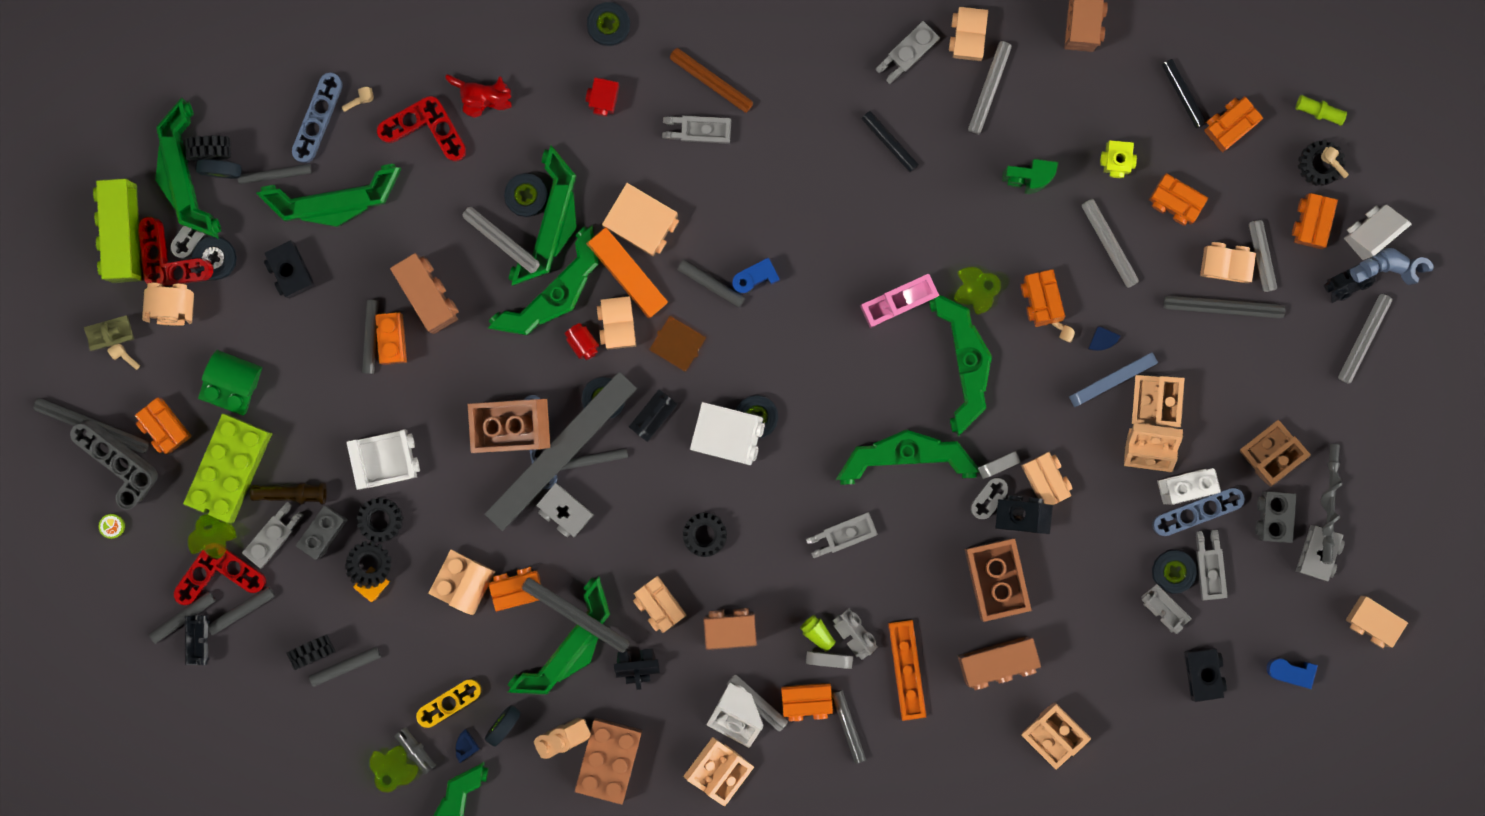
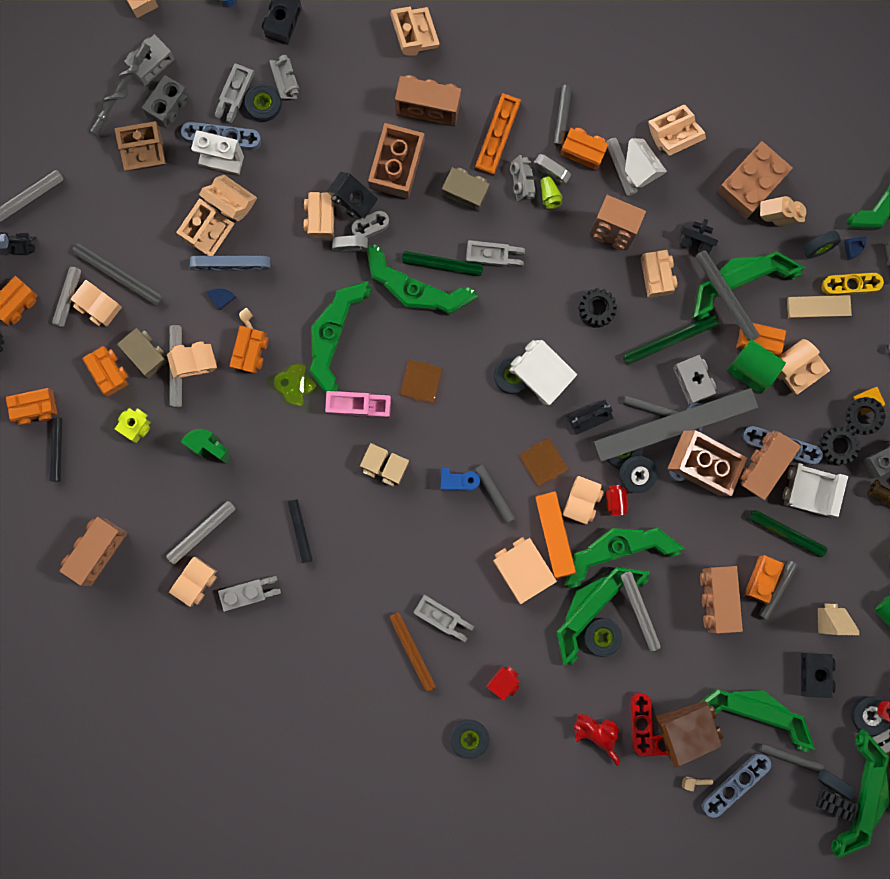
camera: 160 degrees left, 5 degrees down
(298, 331) = (835, 621): none -> tan slope
(388, 400) = (788, 533): none -> dark green axle
(392, 141) = (689, 732): none -> reddish brown slope
(439, 490) = (807, 447): none -> sand blue beam
(445, 457) = (768, 463): none -> nougat brick
(472, 659) = (819, 307): none -> tan tile
(507, 555) = (756, 367): none -> green brick
(582, 387) = (628, 477): none -> black bush
(610, 542) = (671, 339): none -> dark green axle
(848, 361) = (421, 381): none -> clear orange piece
(852, 252) = (374, 461): none -> tan piece
(891, 497) = (442, 263): none -> dark green axle
(909, 589) = (465, 188): none -> dark tan brick
(1095, 255) = (191, 360): none -> light nougat brick
(1150, 238) = (142, 352): none -> dark tan brick

